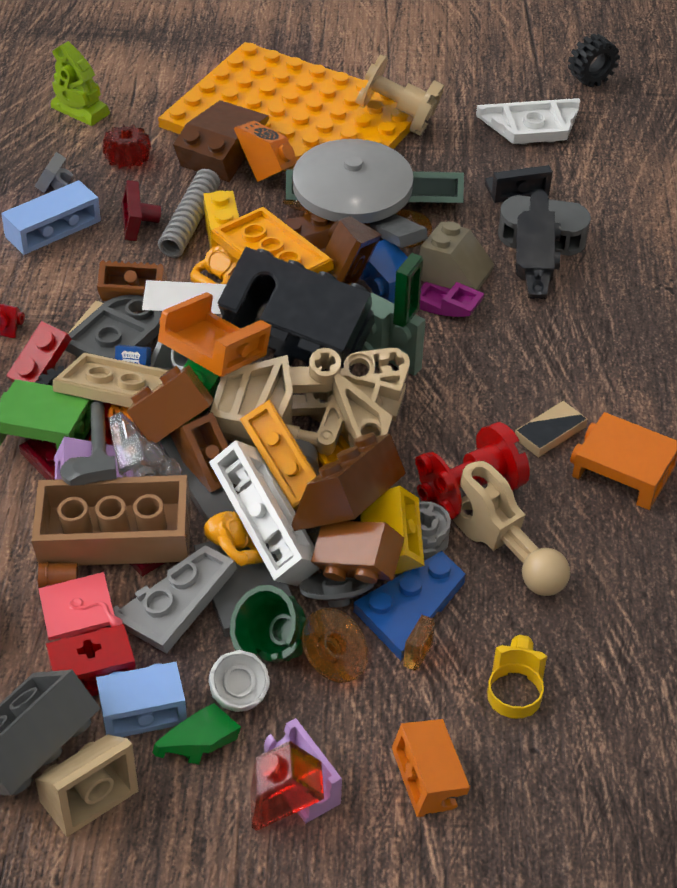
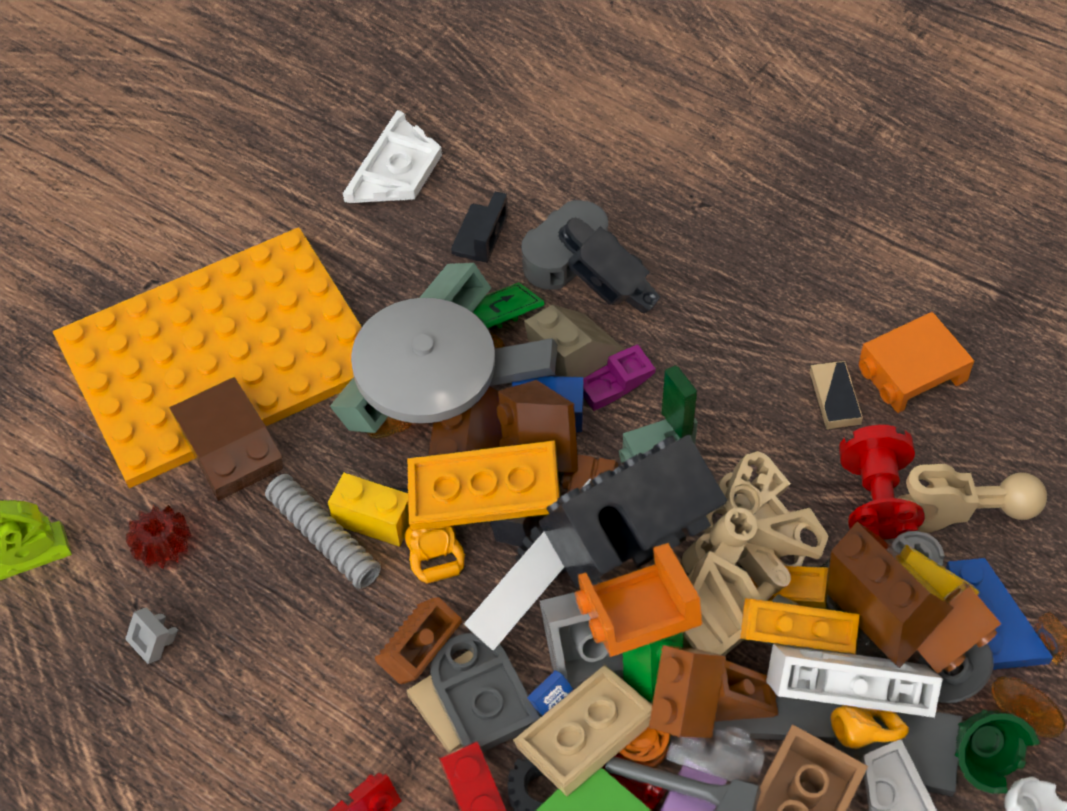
camera: 55 degrees left, 10 degrees up
(51, 217) = (229, 671): light blue brick -> none
(135, 211) = (282, 583): dark red tile -> none
(265, 149) = (293, 408): orange slope -> none
(409, 98) = (318, 238): tan piece -> none
(449, 213) = (506, 305): none -> green piece
(592, 47) = (356, 65): black tyre -> none

